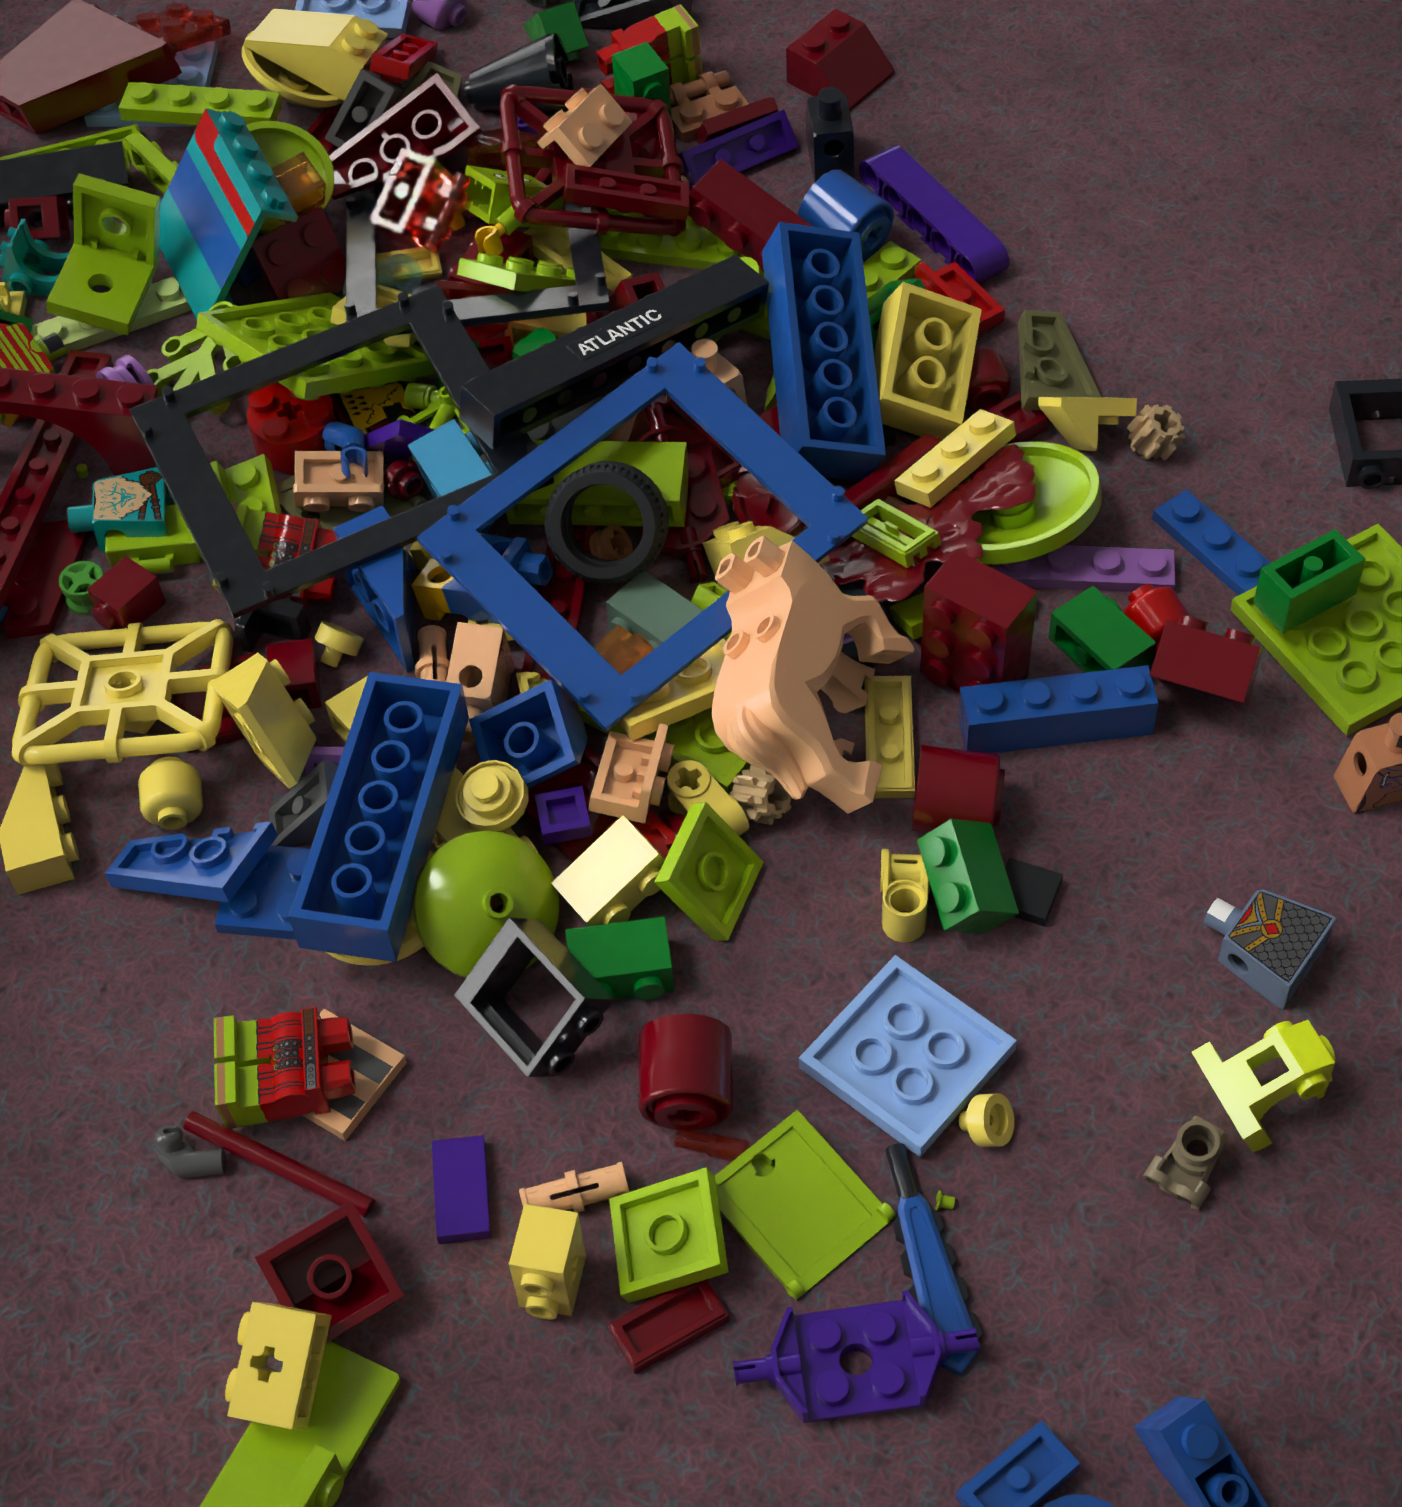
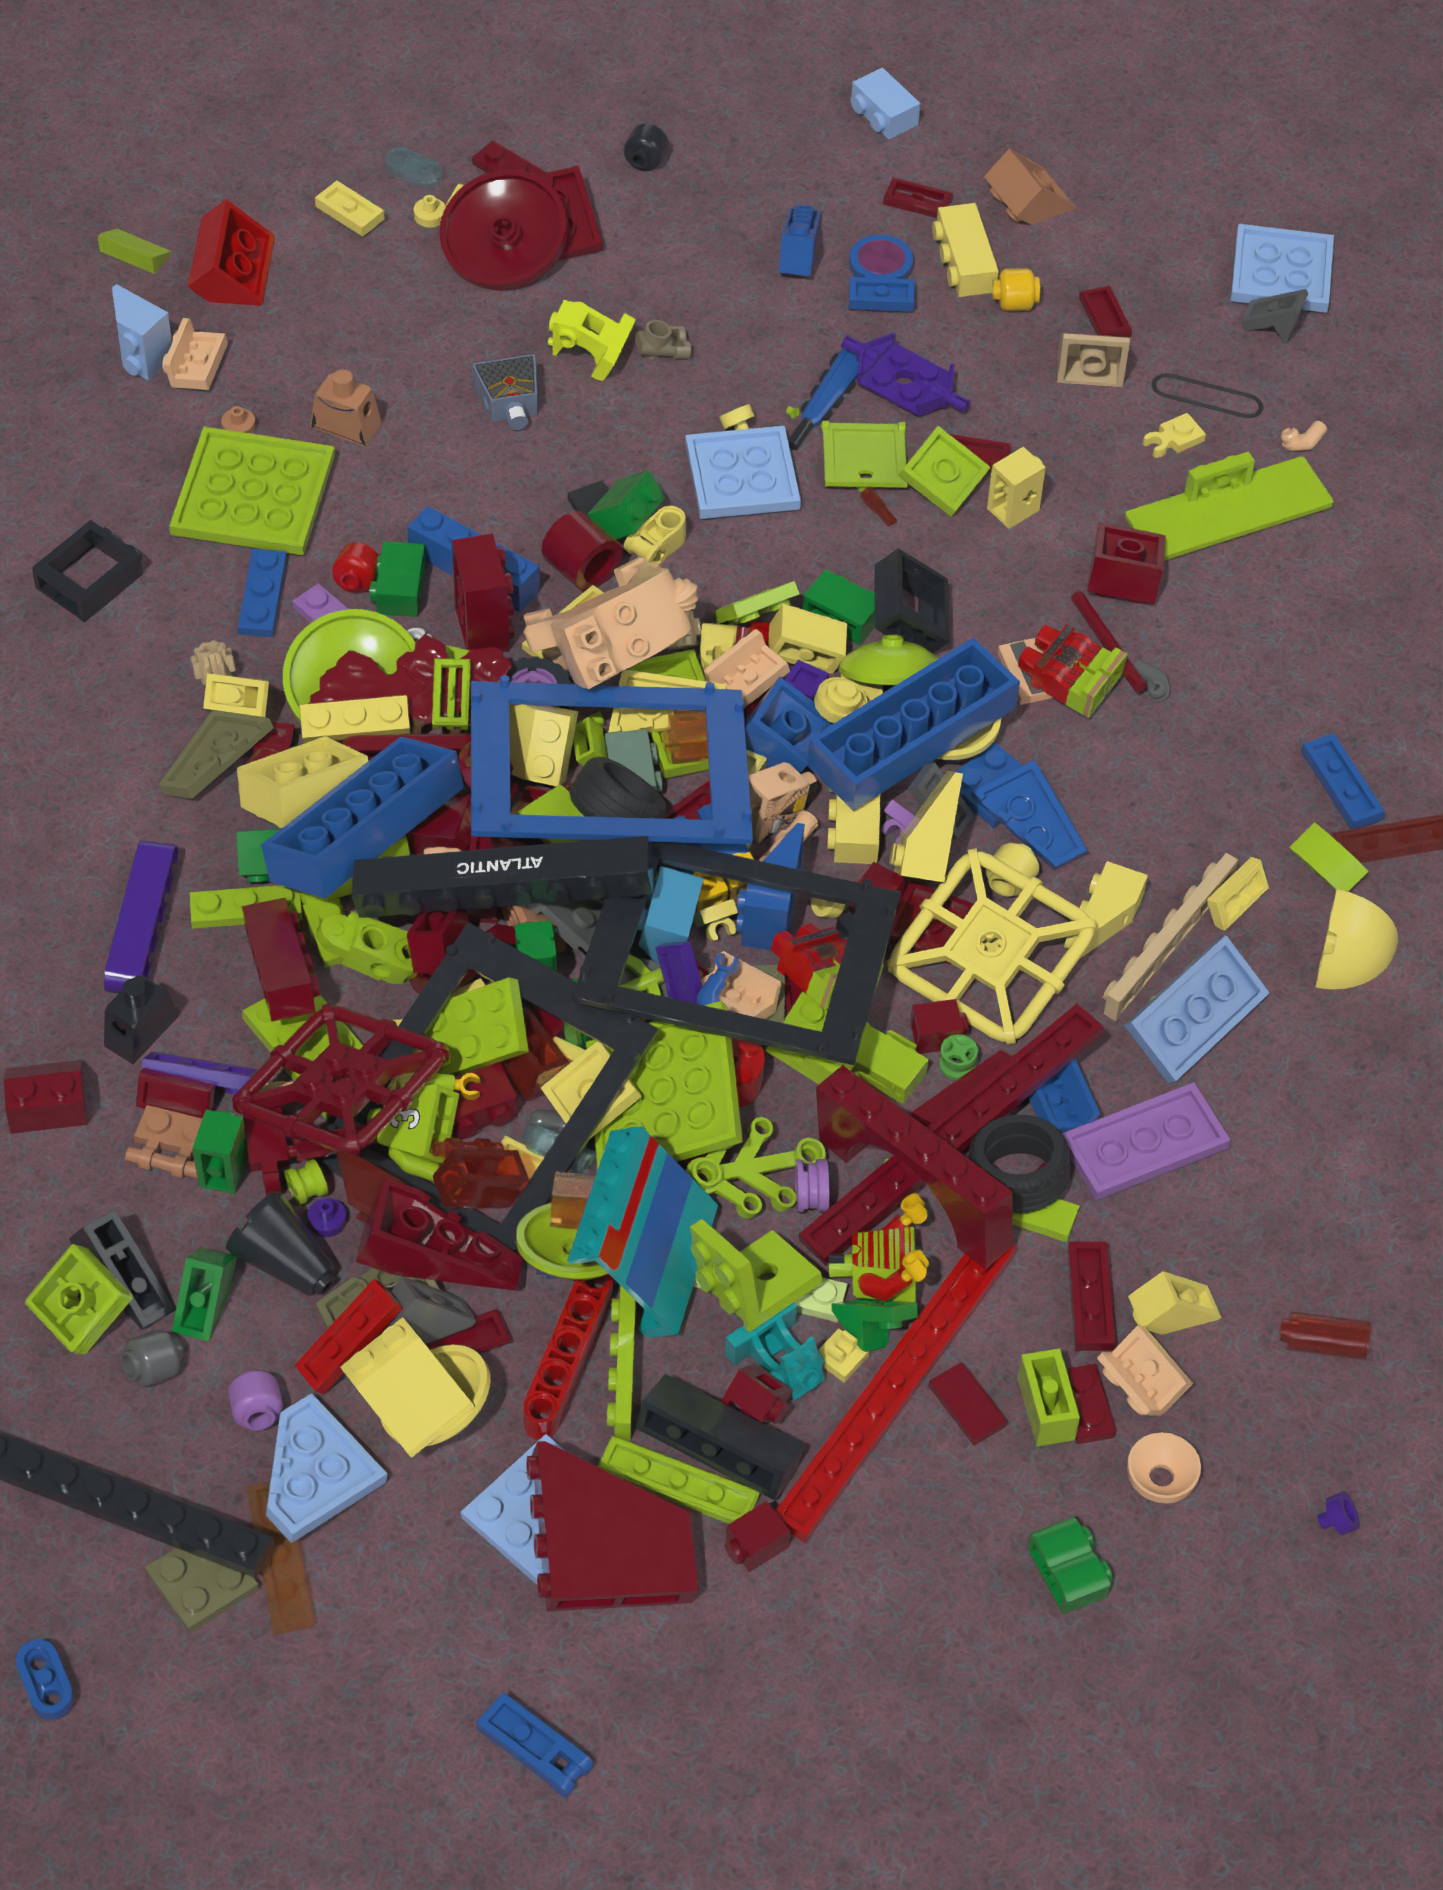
camera: 145 degrees left, 0 degrees up
(124, 503) = (896, 1075): torso -> none
(184, 26) = (486, 1535): clear red plate -> none
(187, 103) = (551, 1397): lime plate -> none
(292, 1337) = (1185, 525): light yellow brick -> none
(461, 1189) = (1023, 571): dark purple tile -> none
(587, 126) = (335, 1076): light nougat bracket -> none
(610, 1179) = (968, 528): light nougat pin -> none
(626, 192) = (355, 1017): dark red plate -> none
(670, 34) = (178, 1183): hips -> none
(685, 1071) = (866, 523): dark red piece -> none
(847, 205) = (209, 941): blue piece -> none
(959, 285) = (207, 842): red bracket -> none
(1207, 660) = (380, 500): dark red slope -> none
(1309, 581) = (269, 498): green brick -> none

